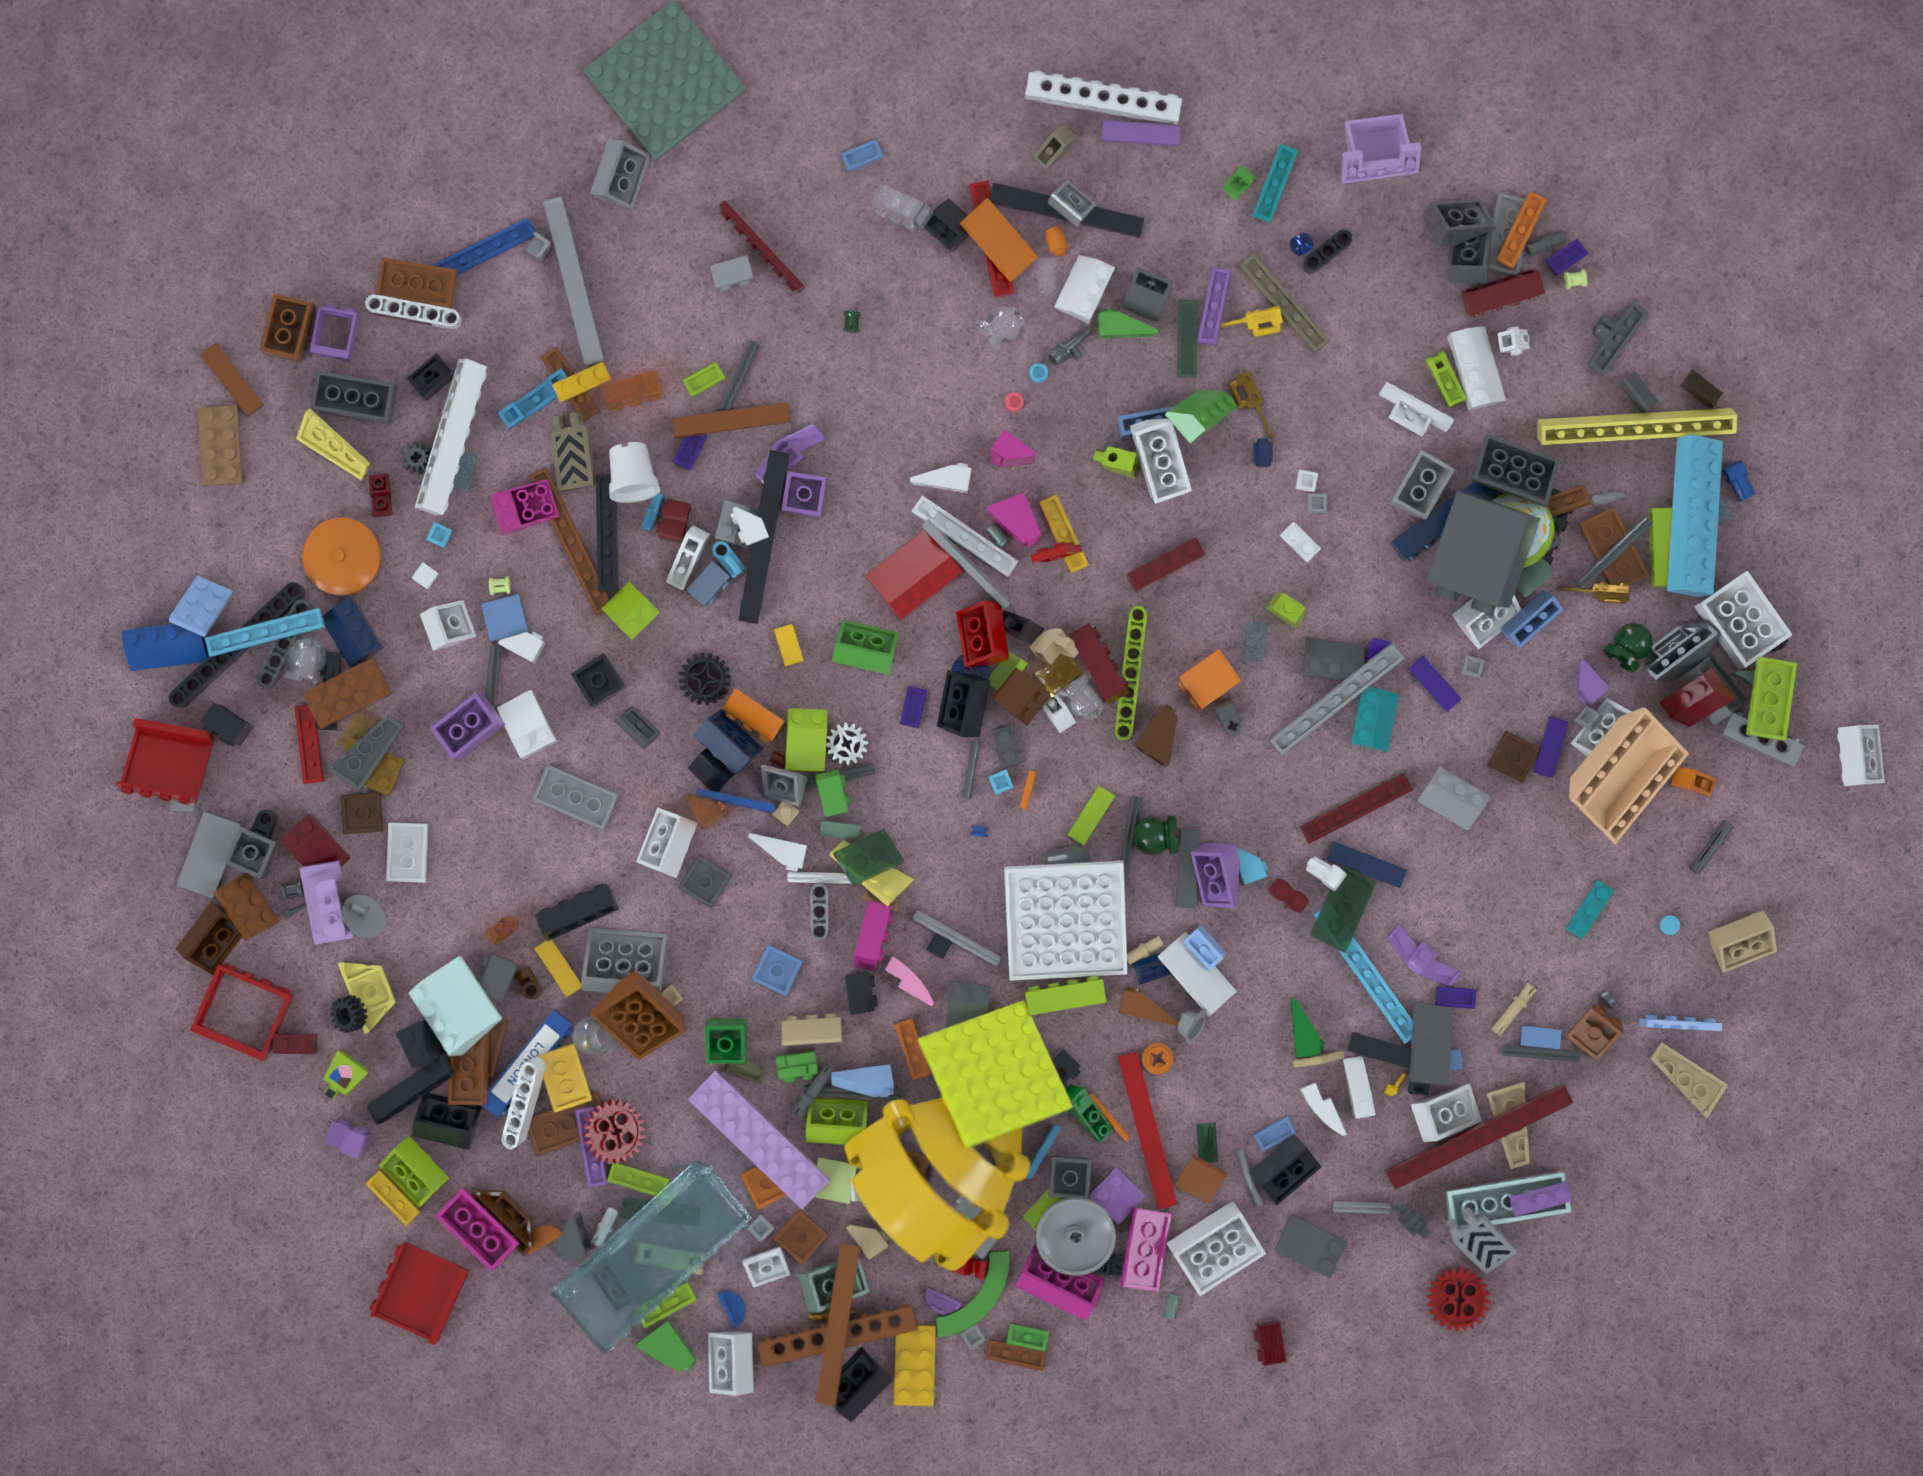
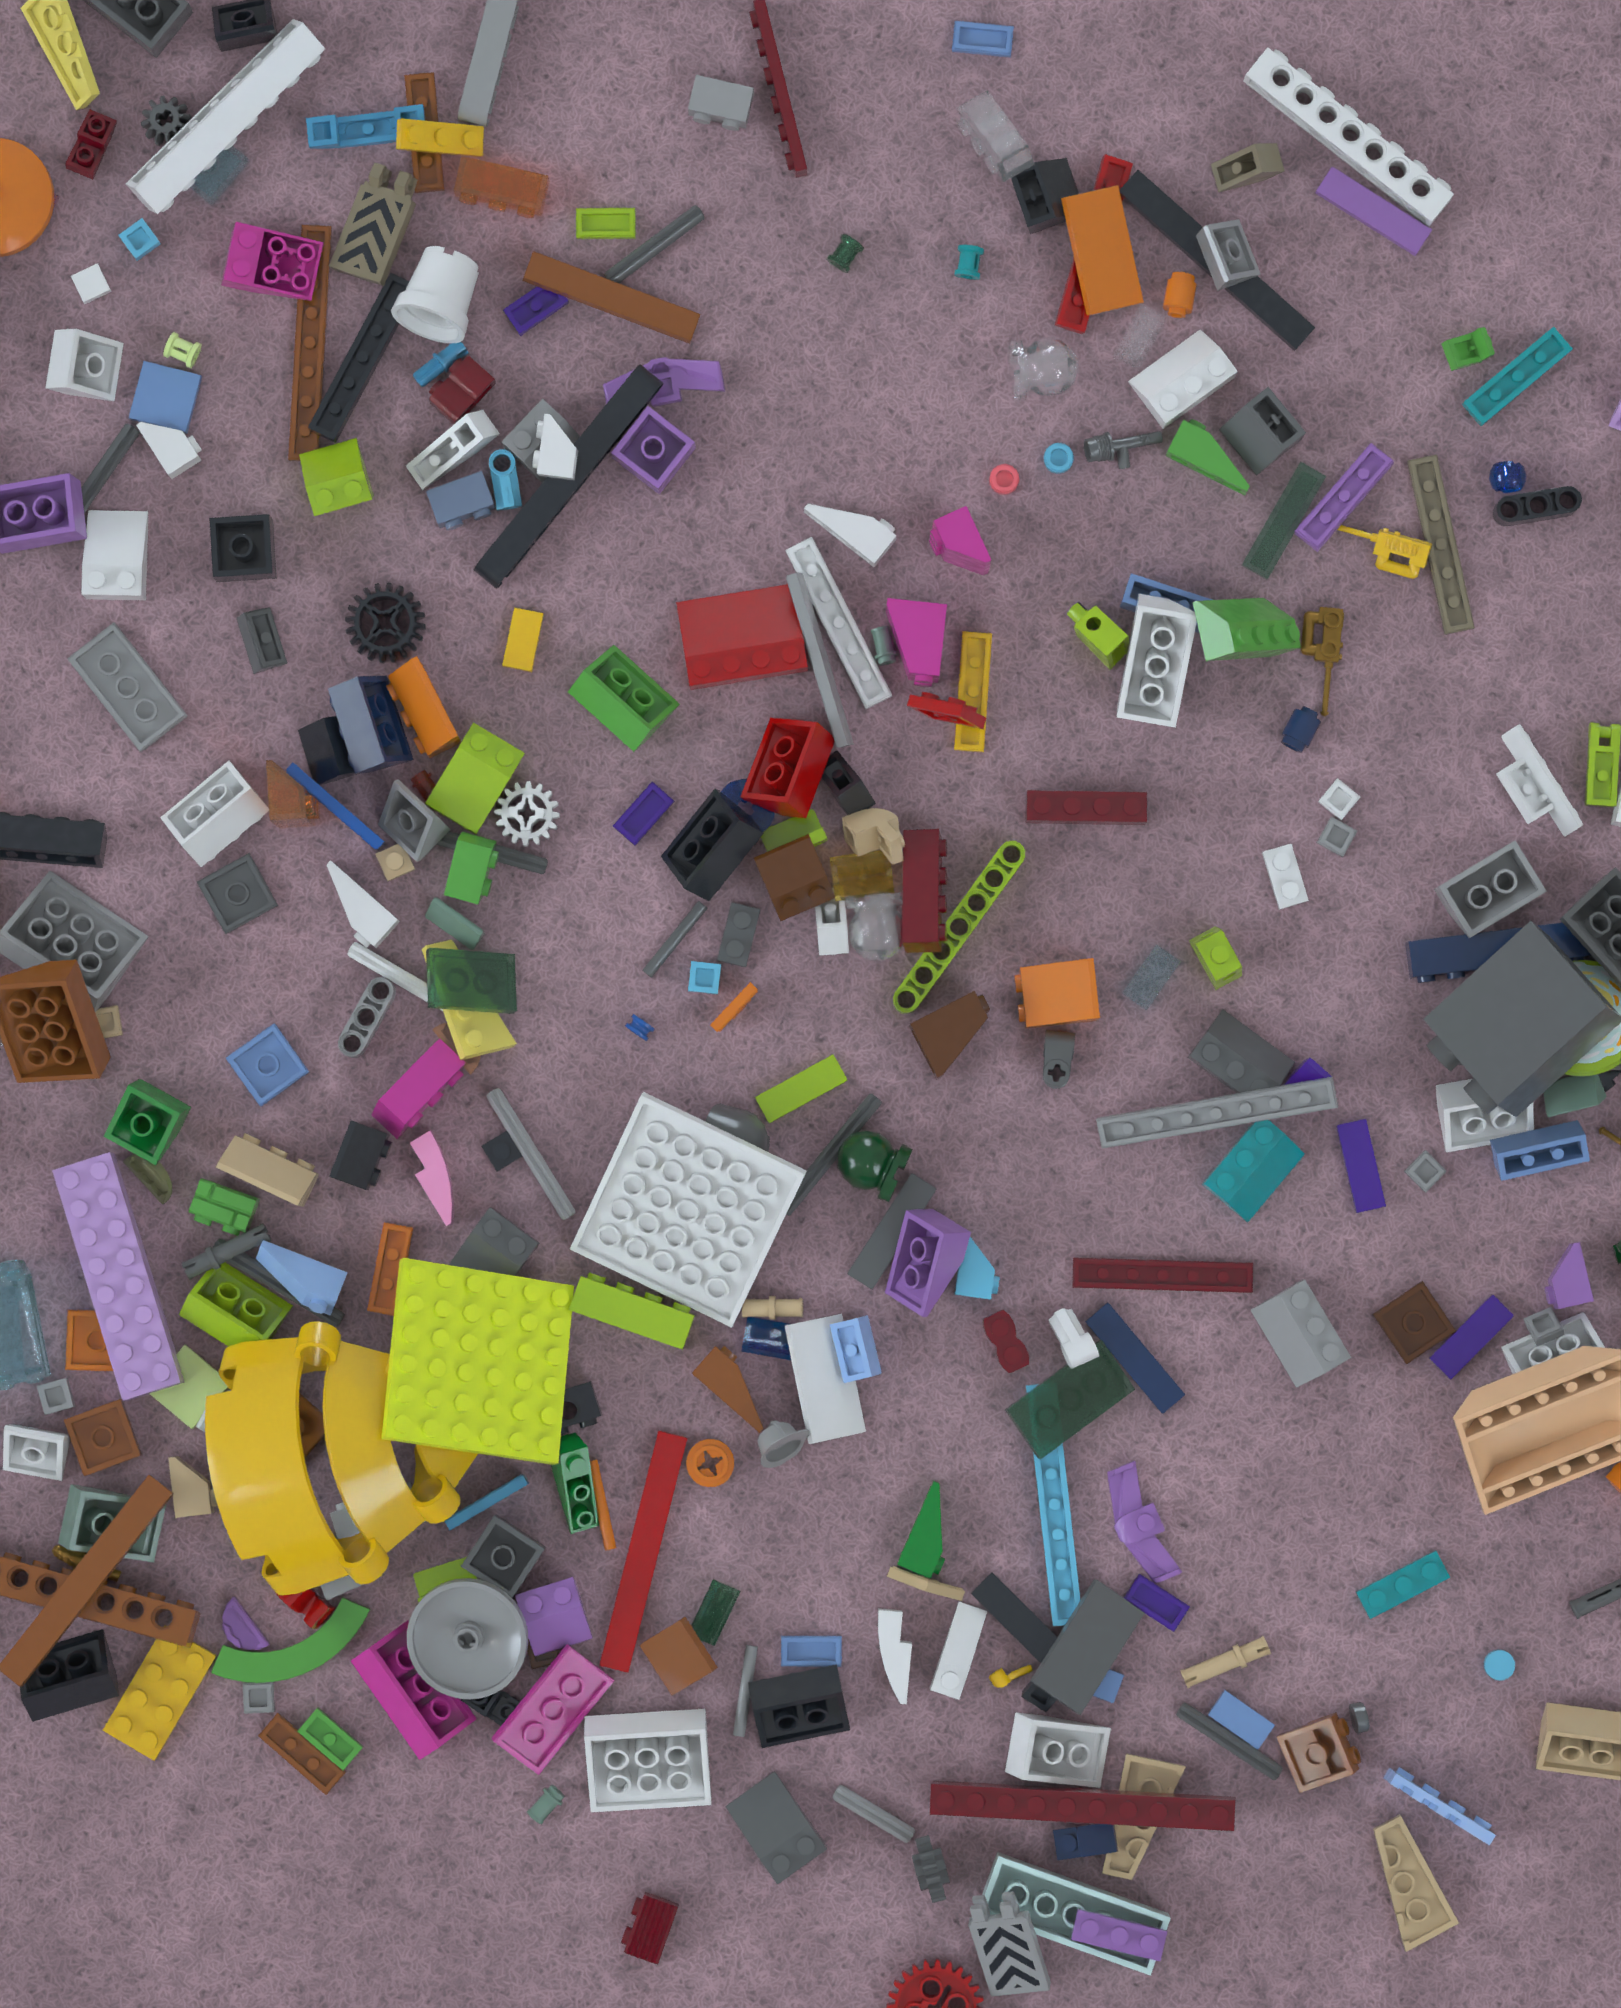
camera: 35 degrees right, 0 degrees up
(925, 288) = (969, 262): none -> teal bush
(1490, 1156) = (1085, 1841): none -> dark blue slope

